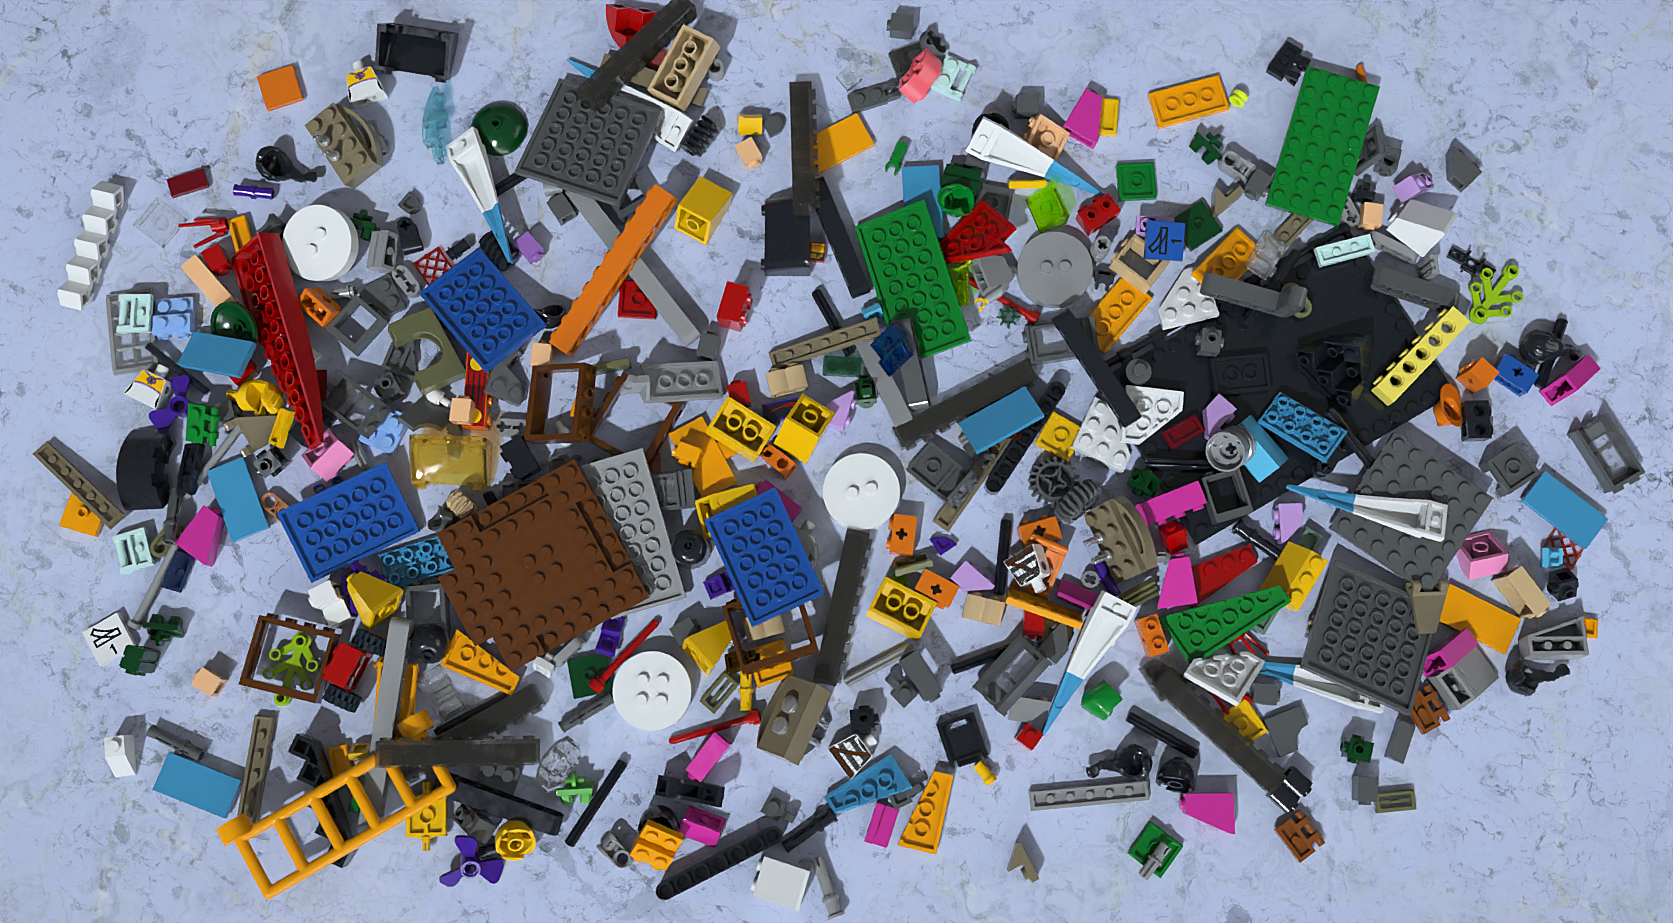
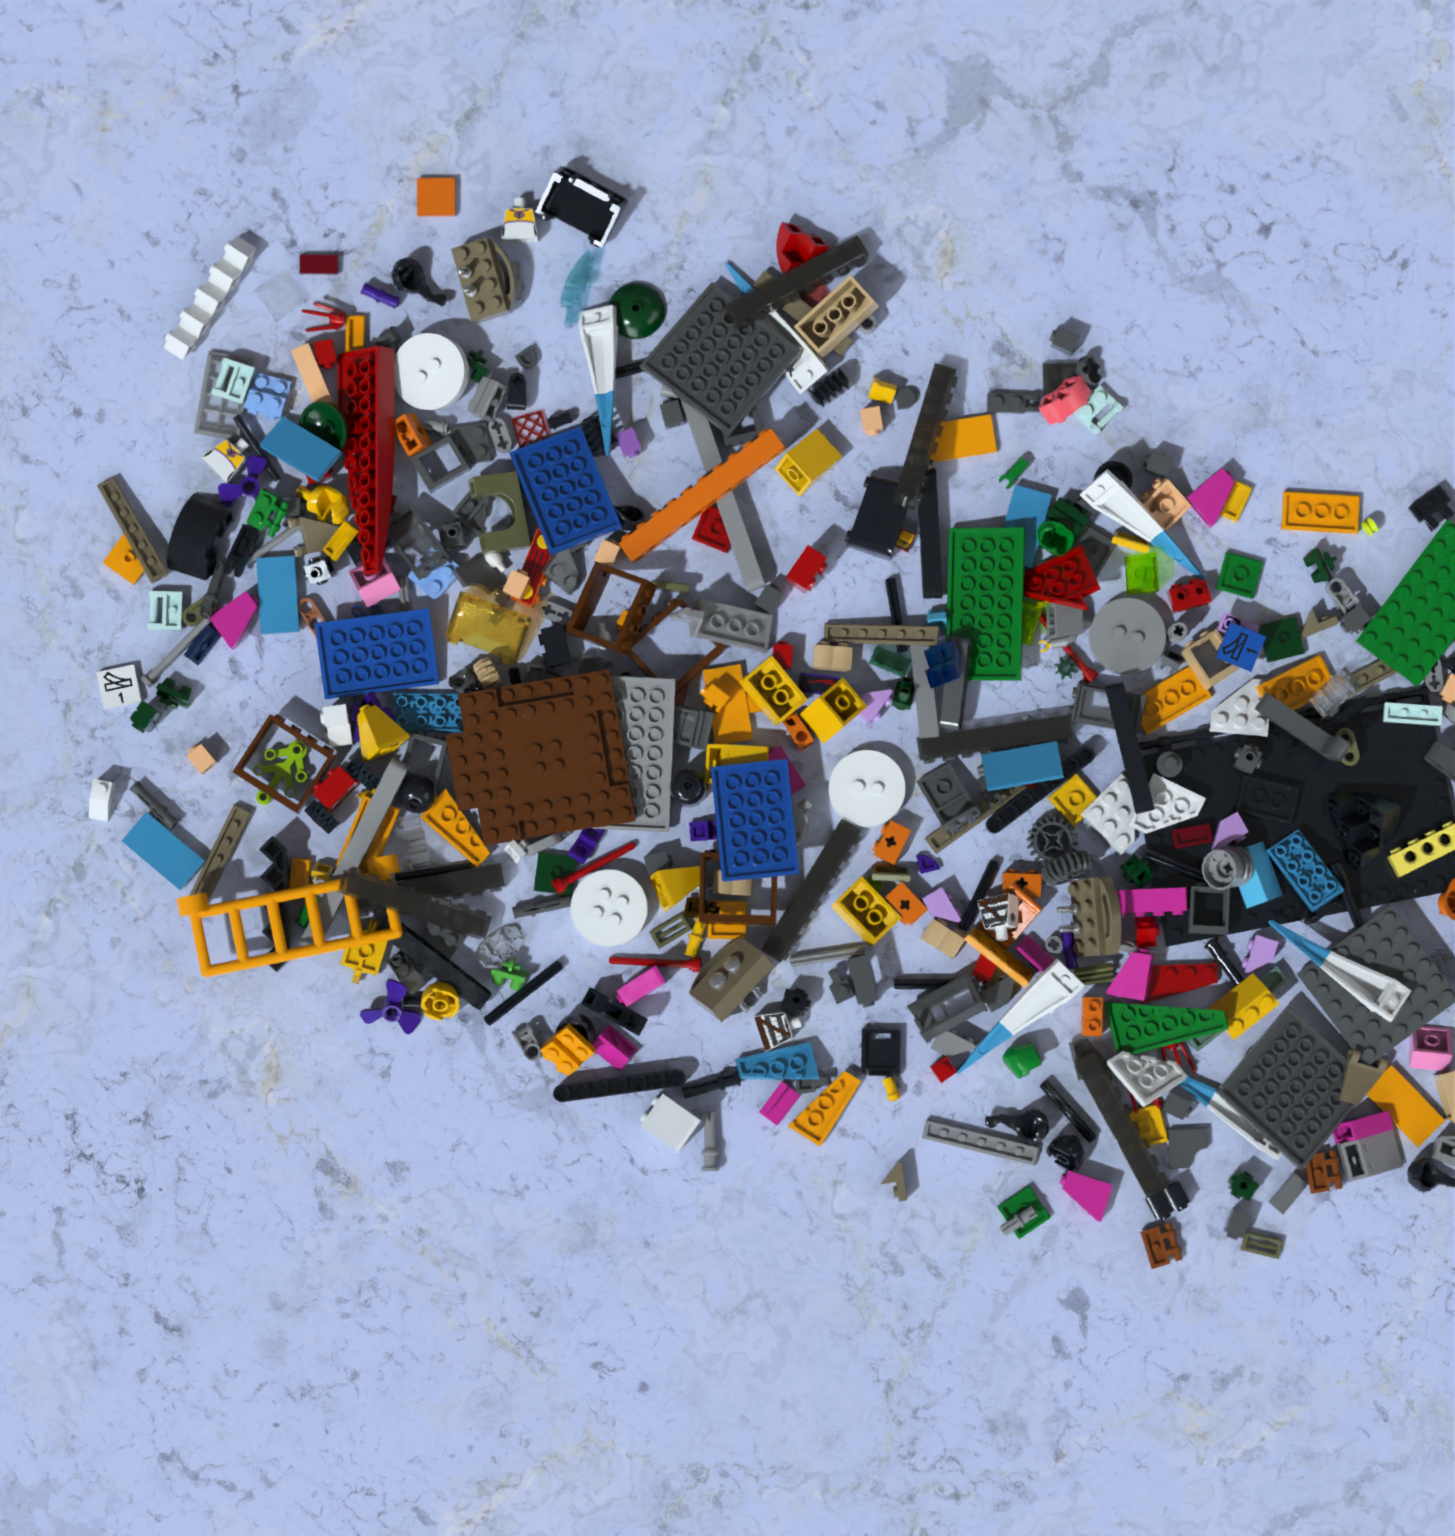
camera: 20 degrees right, 5 degrees up
(776, 808) = (686, 1055): dark grey plate -> none

